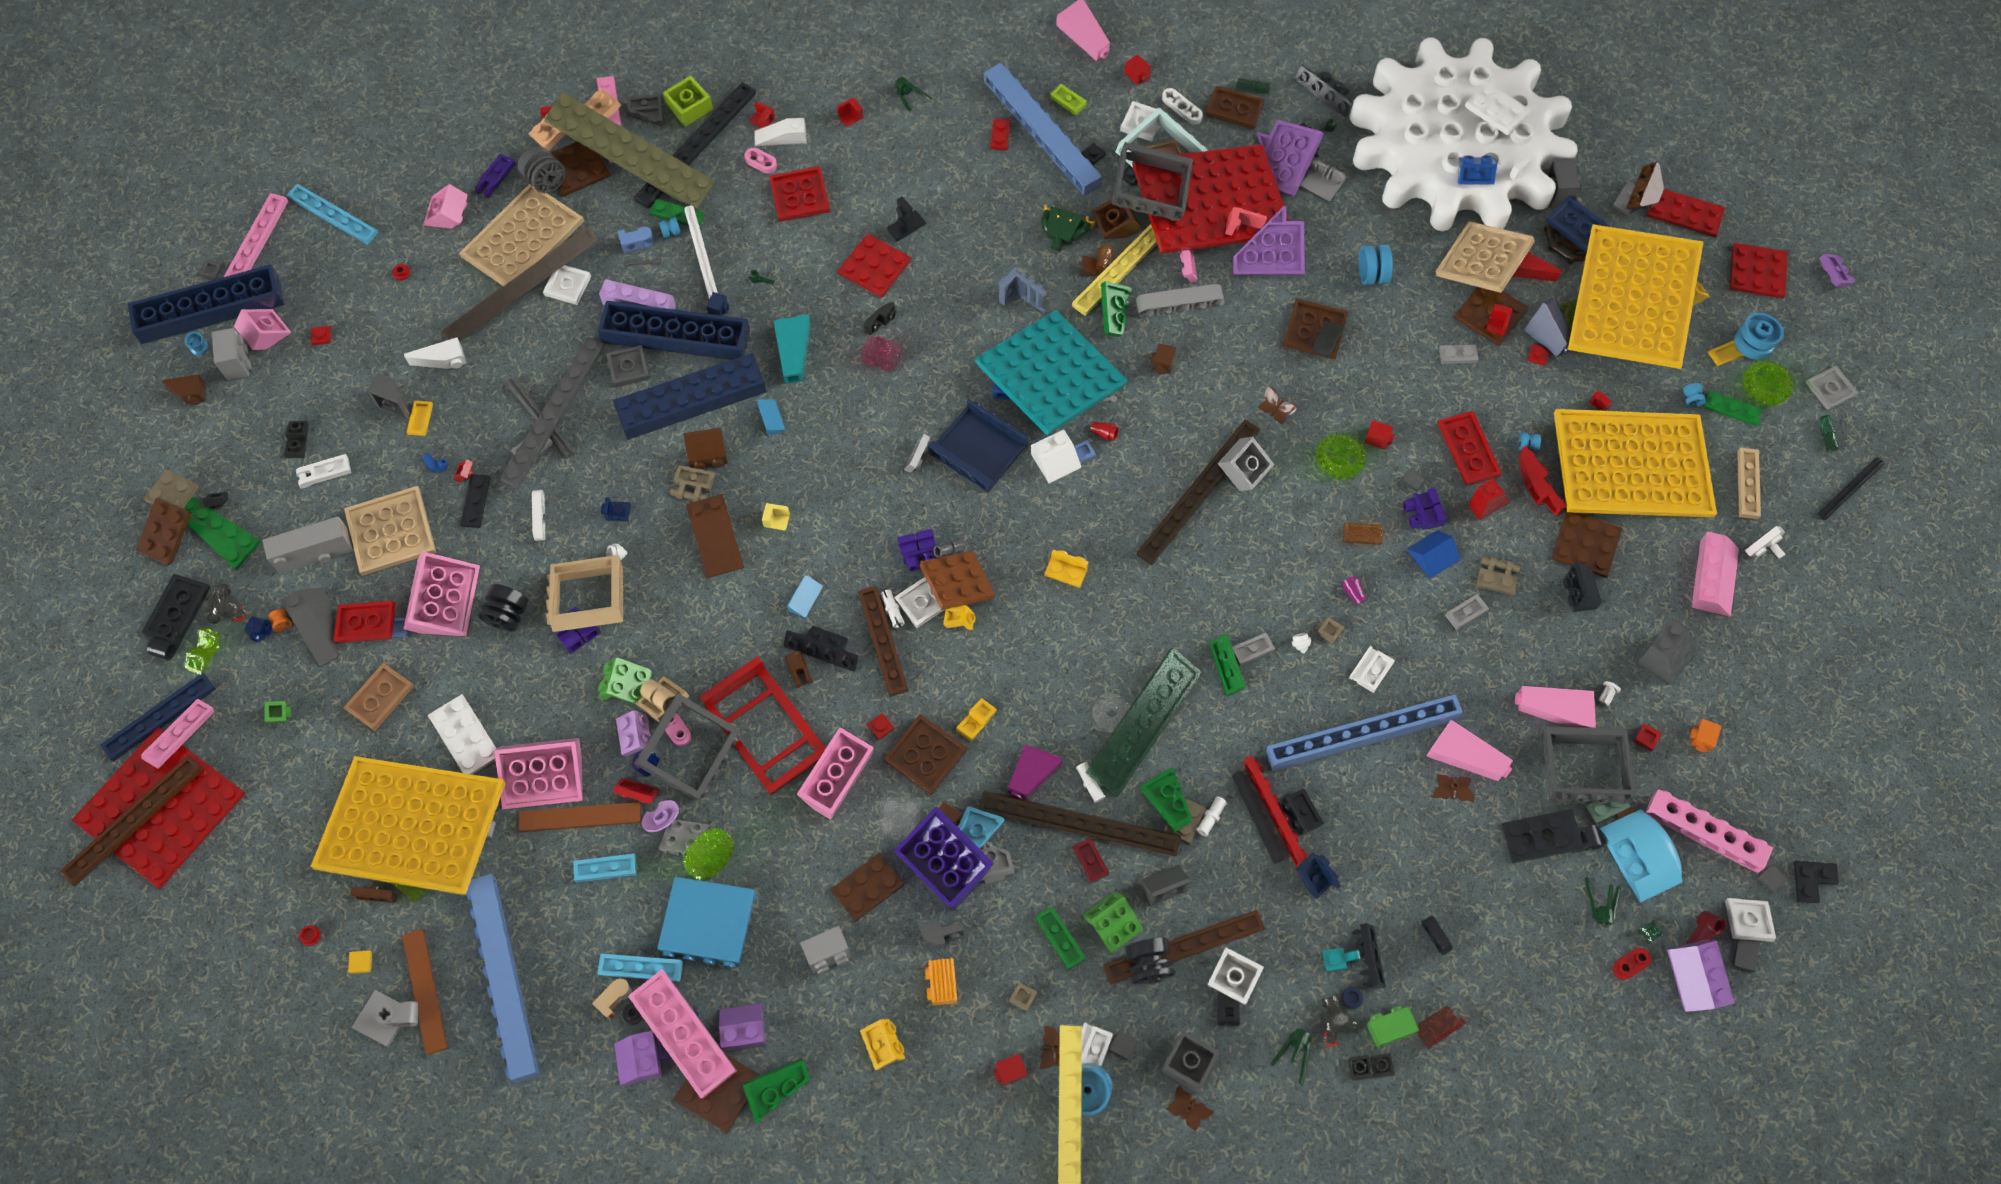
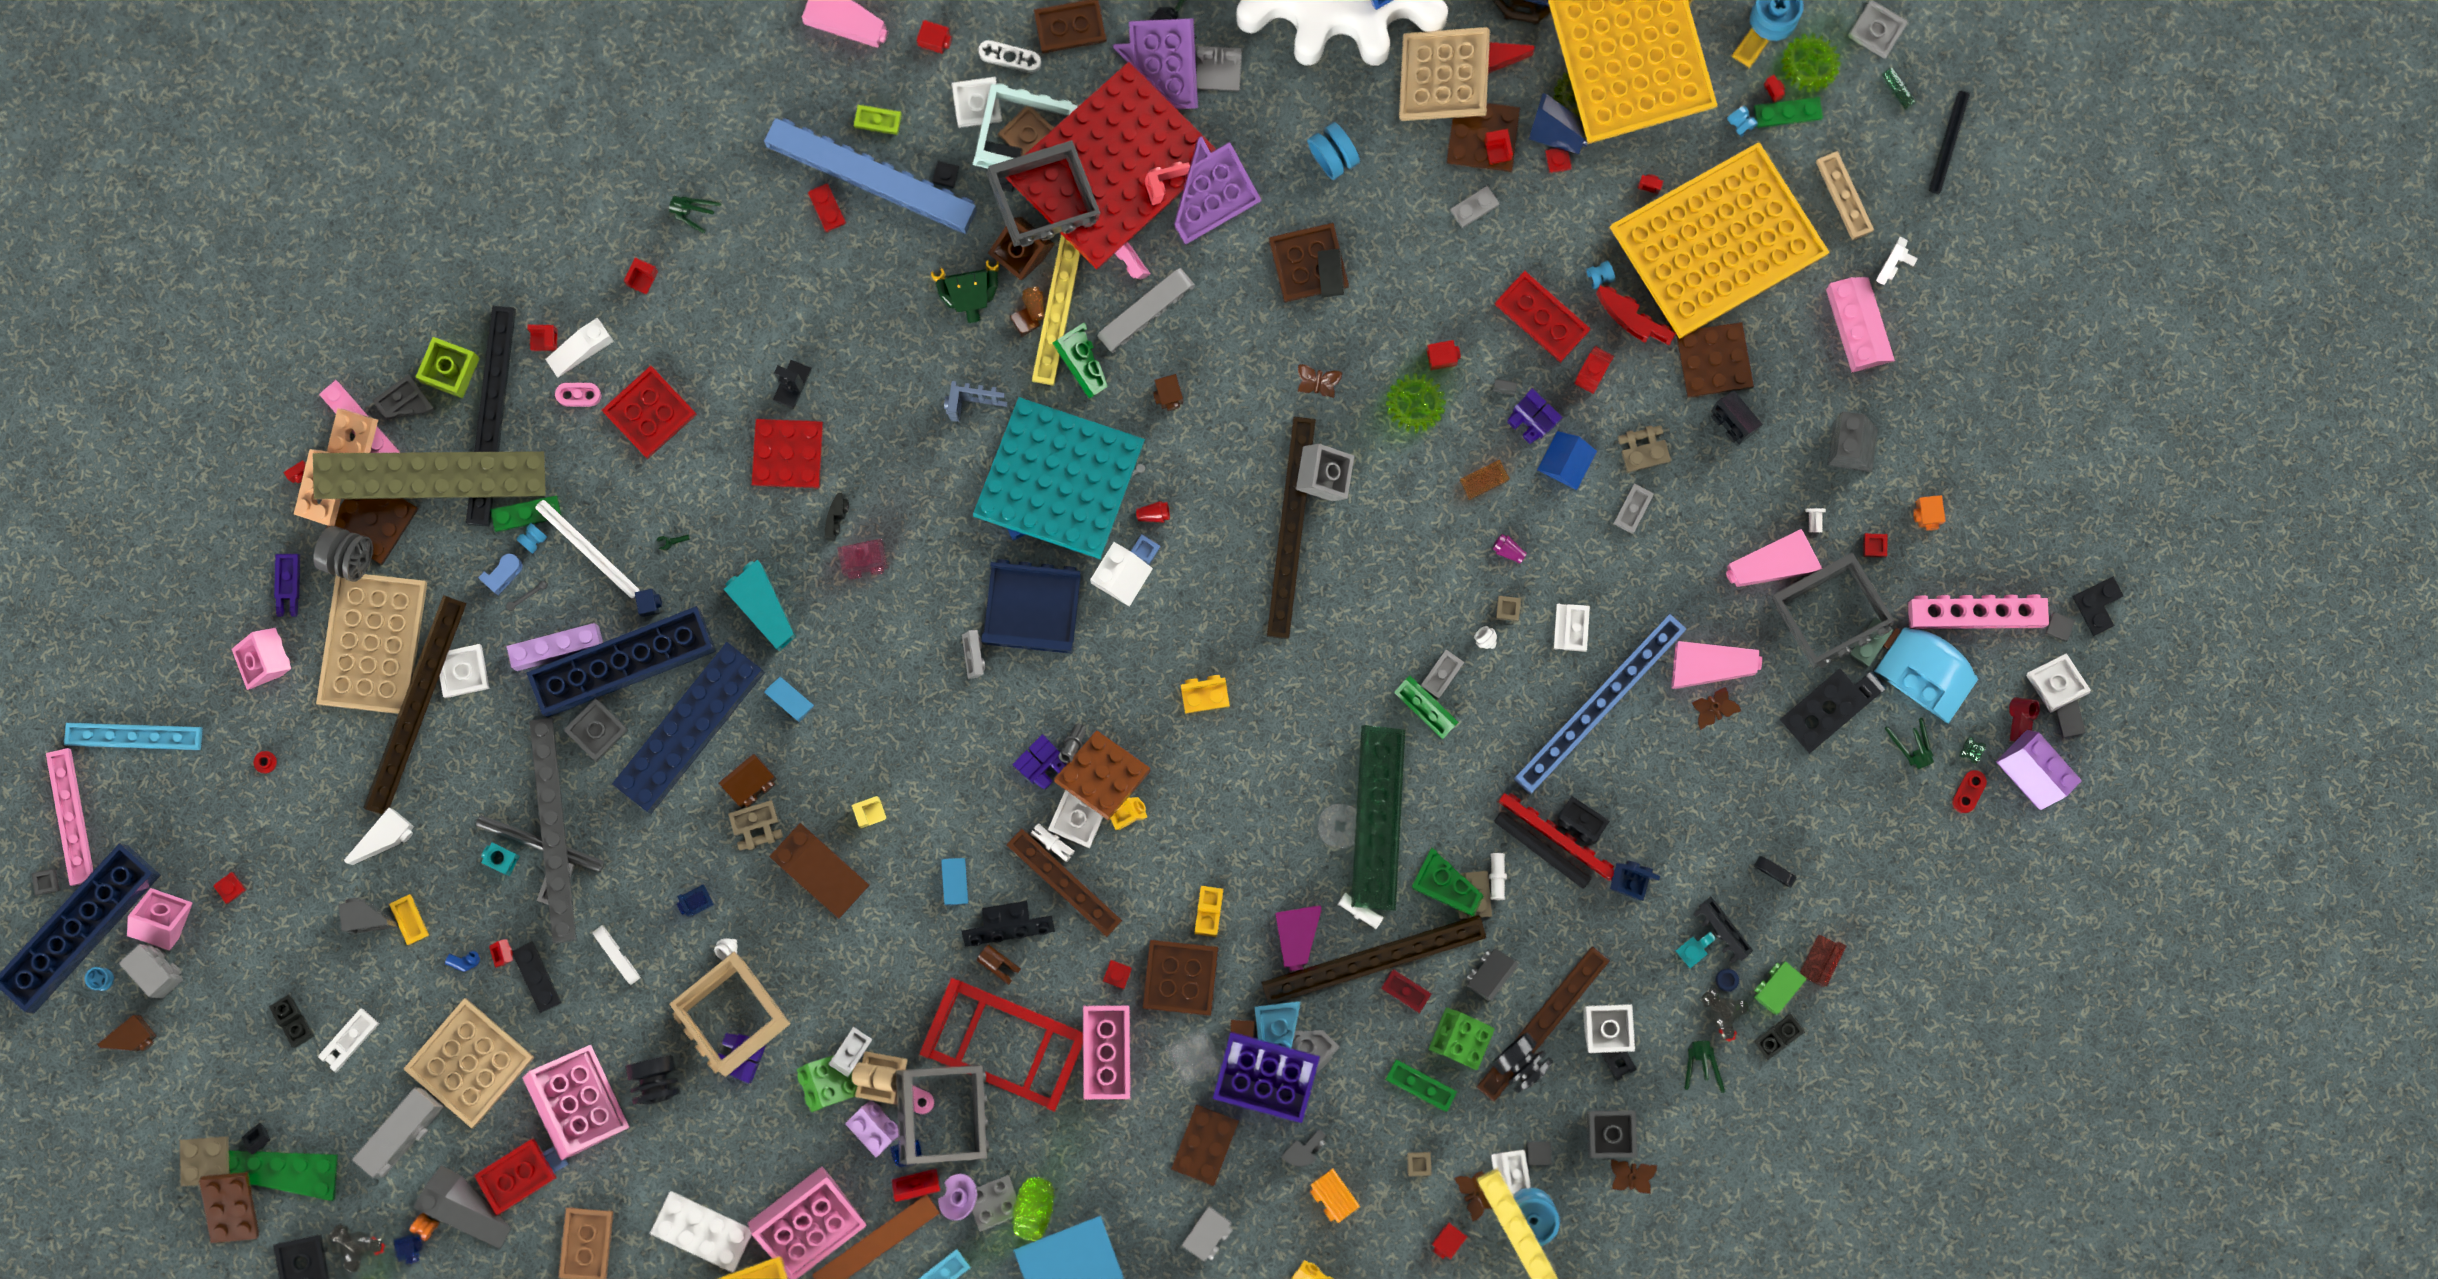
camera: 30 degrees left, 15 degrees up
(509, 416) = (508, 863): none -> teal brick
(652, 668) = (850, 1051): none -> plate
(1730, 385) = (1774, 88): none -> red plate

